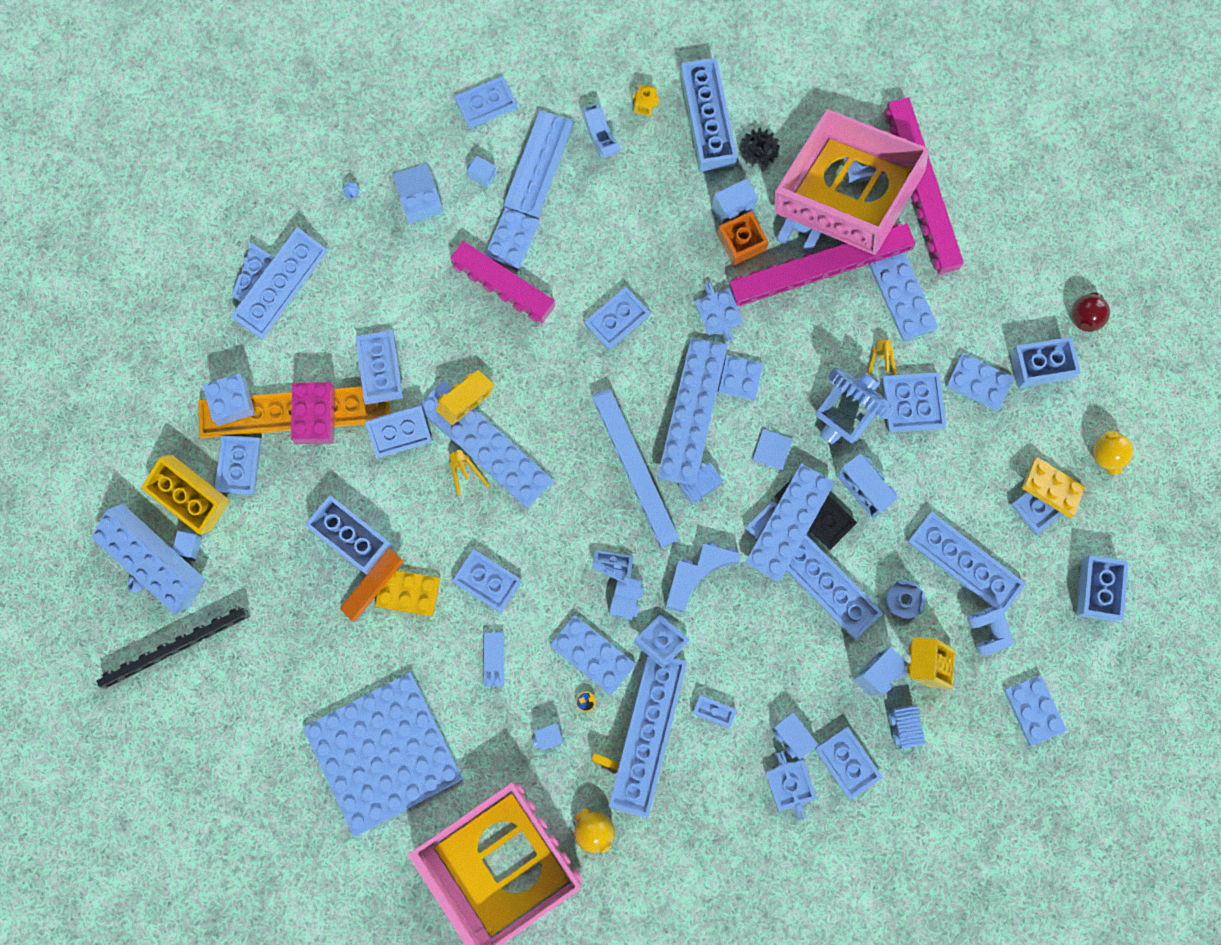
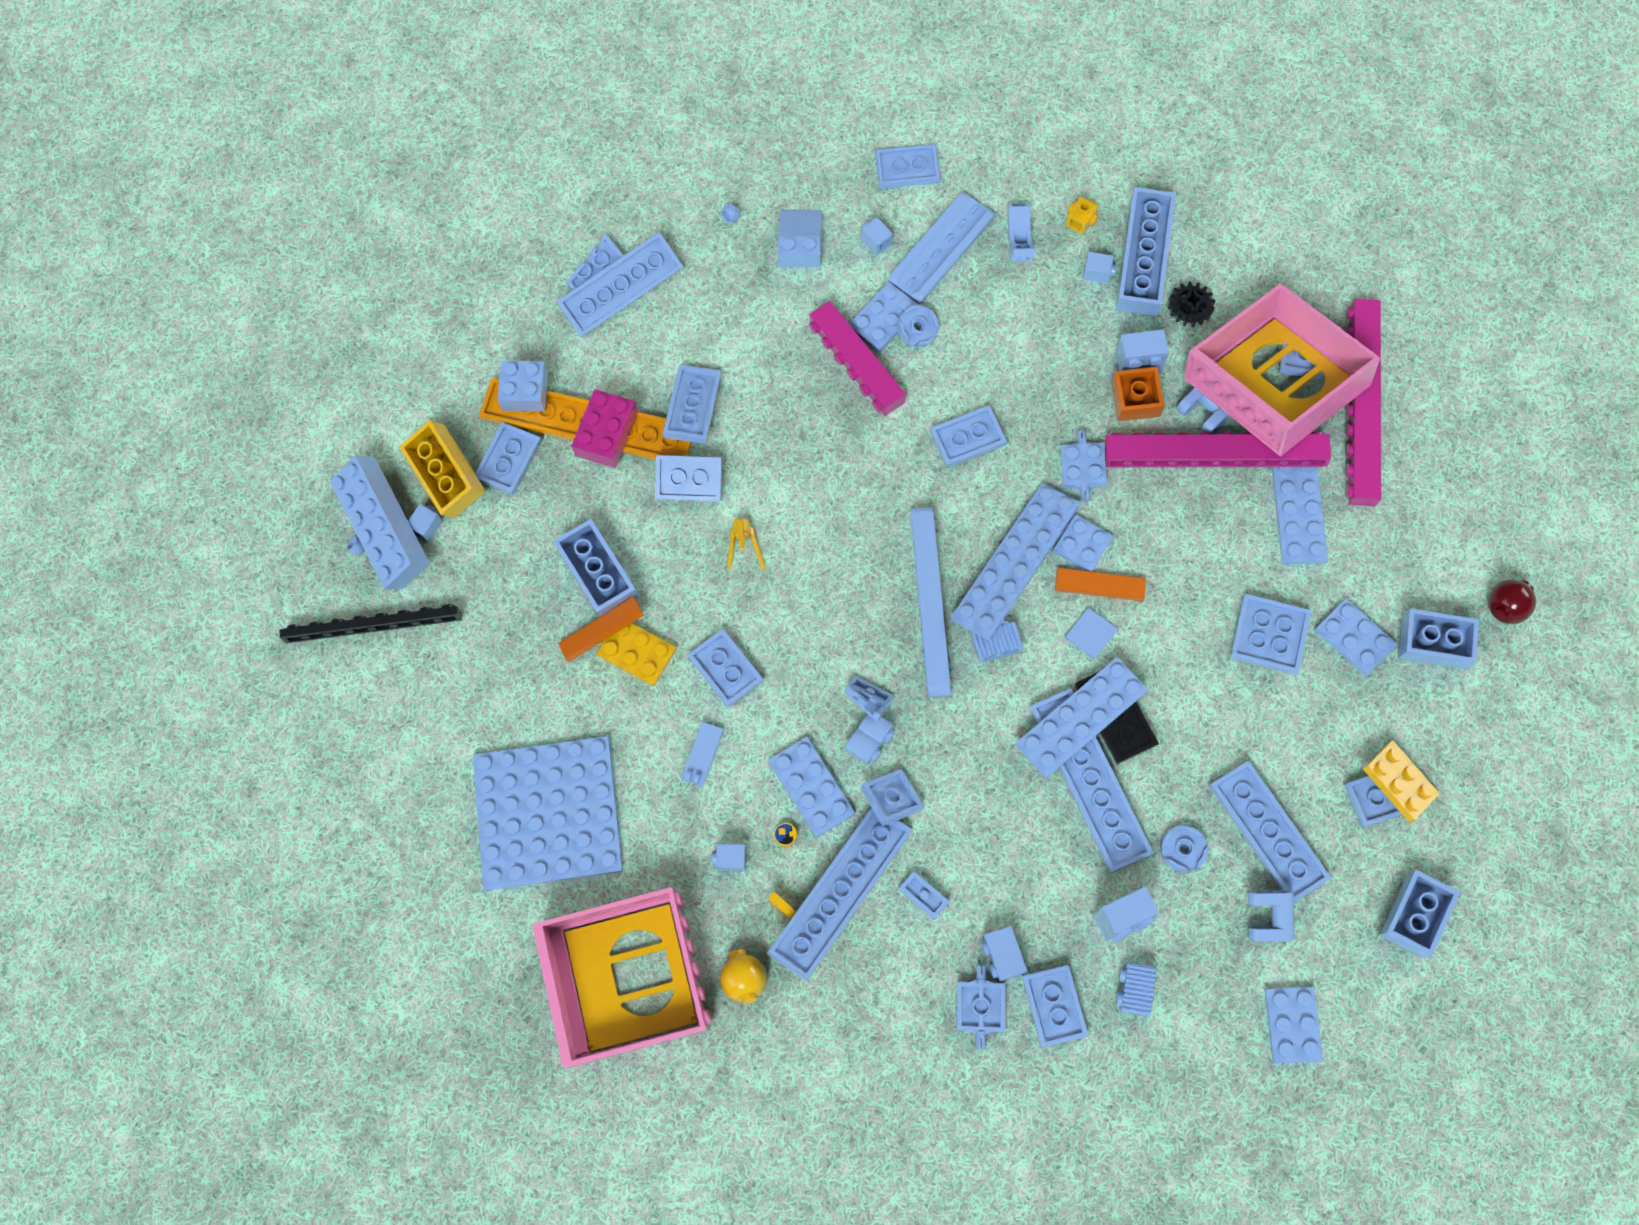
camera: 25 degrees right, 5 degrees down
(464, 397) = (771, 464): yellow brick -> none
(490, 450) = (776, 524): light blue plate -> none
(547, 230) = (927, 324): none -> light blue plate
(674, 140) = (1099, 267): none -> light blue brick
(689, 575) = (948, 737): light blue arch -> none
(766, 407) = (1100, 584): none -> orange tile
(860, 389) = (1214, 599): light blue piece -> none
(867, 486) = (1183, 706): light blue brick -> none
(884, 350) = (1256, 566): yellow plant -> none
(931, 663) = (1187, 924): yellow brick -> none
(1113, 452) = (1485, 764): yellow brick -> none

